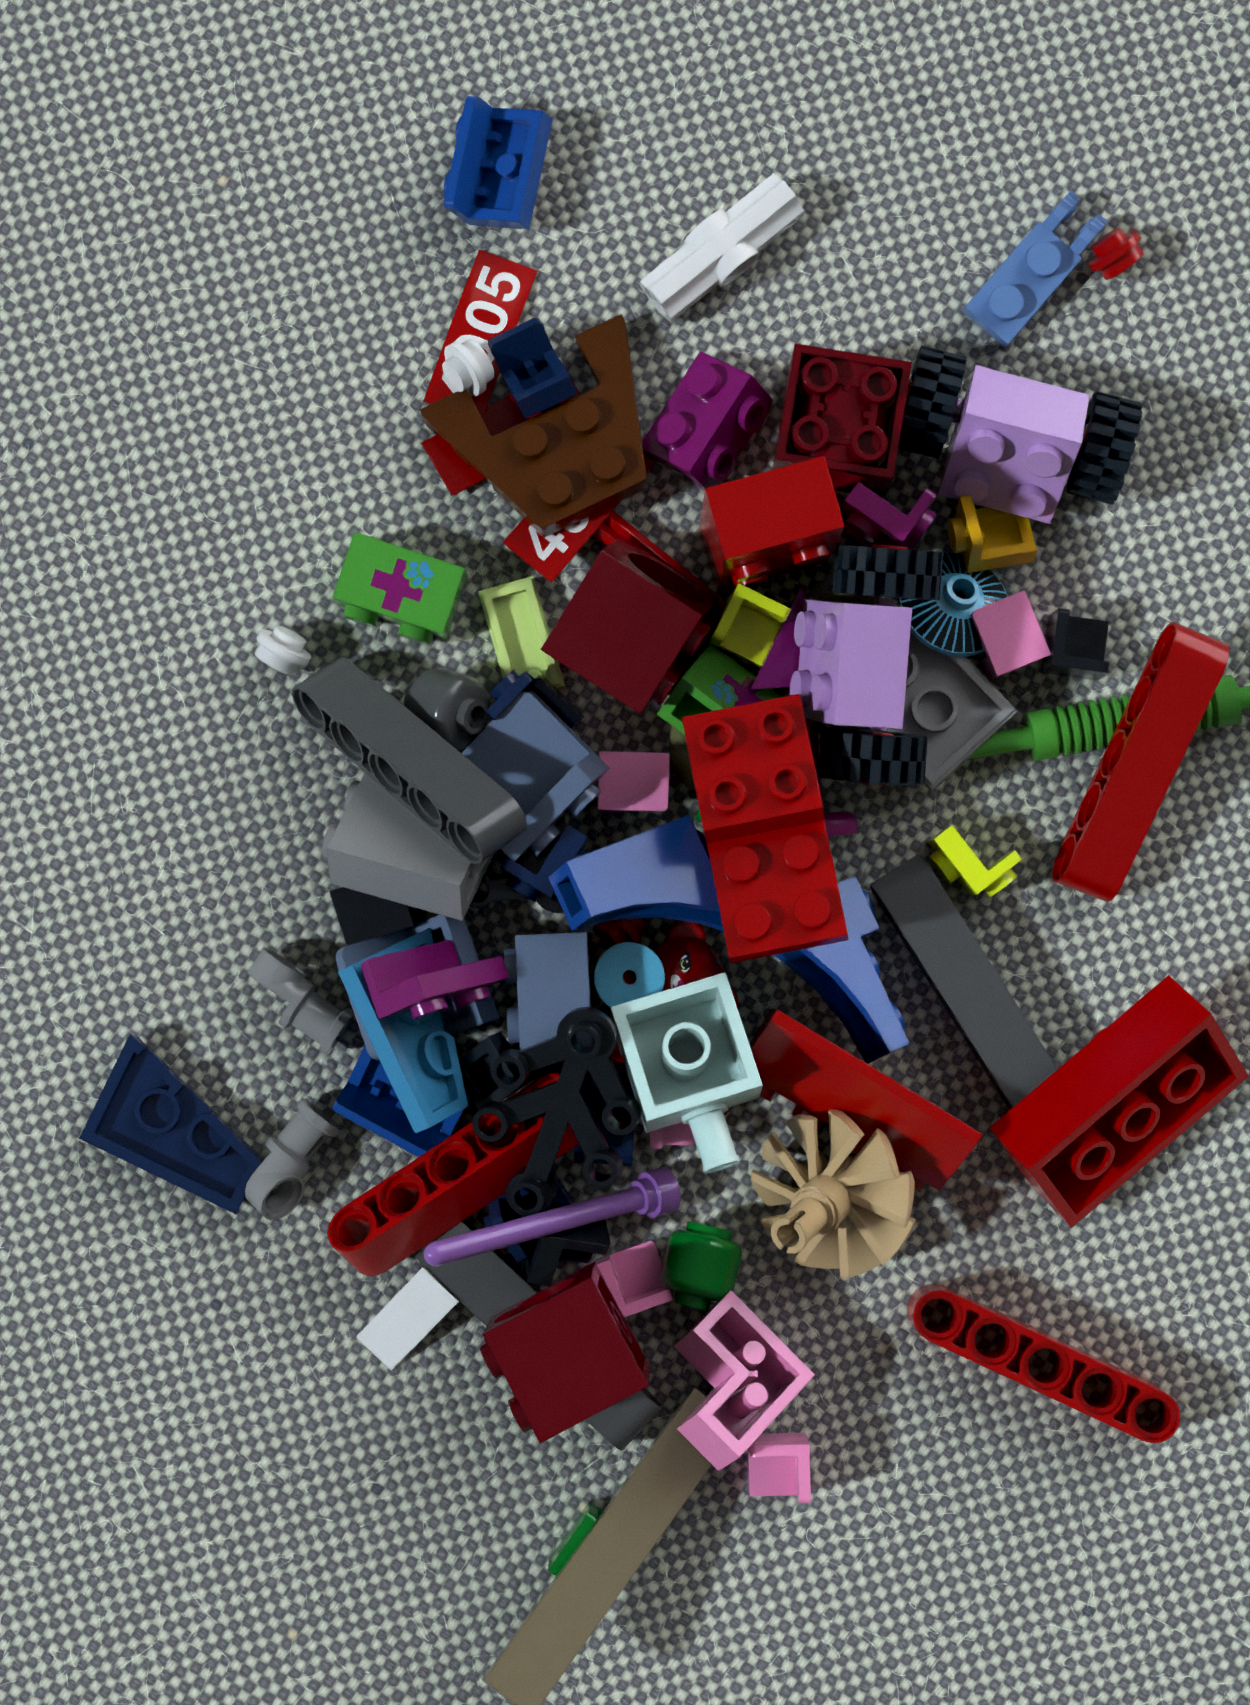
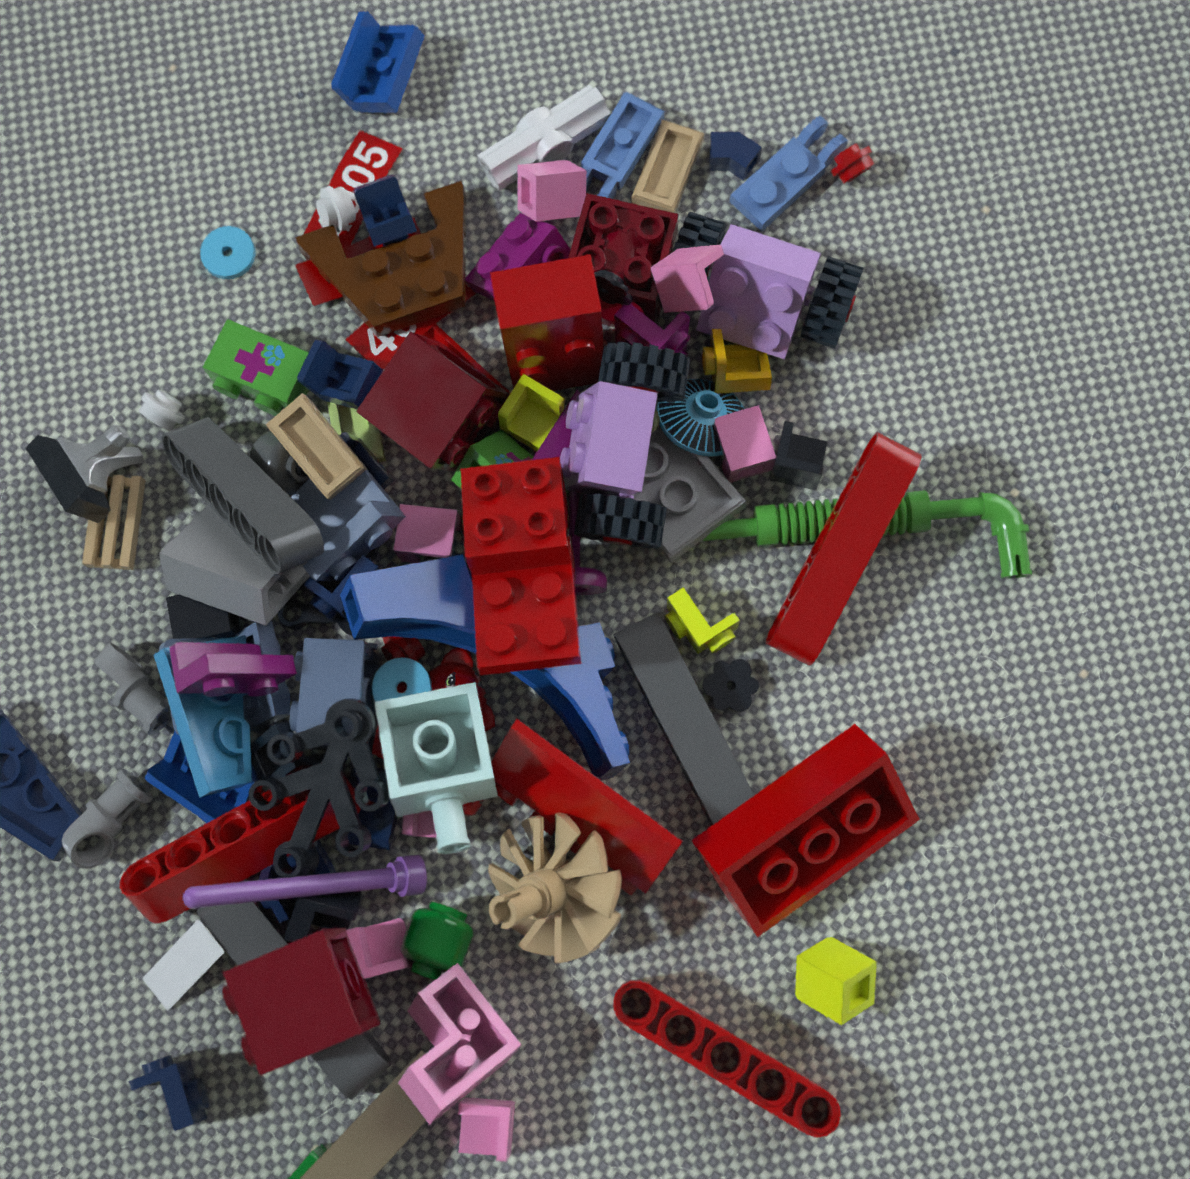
camera: 10 degrees right, 10 degrees down
(200, 739) = (80, 471): none -> piece
(218, 795) = (131, 530): none -> tan tile
(326, 413) = (221, 240): none -> medium azure wheel
(430, 1463) = (183, 1092): none -> dark blue bracket
(494, 694) = (316, 446): none -> tan tile
(505, 595) = (338, 376): none -> dark blue bracket
(739, 322) = (551, 190): none -> bright pink panel
(816, 255) = (621, 143): none -> medium blue hinge
(843, 471) = (612, 288): none -> black plant
(881, 274) = (668, 167): none -> tan tile
(926, 447) = (683, 280): none -> bright pink panel
(962, 248) = (733, 153): none -> dark blue piece
(1026, 945) = (737, 673): none -> black plant
(1162, 1265) = (835, 980): none -> neon yellow panel

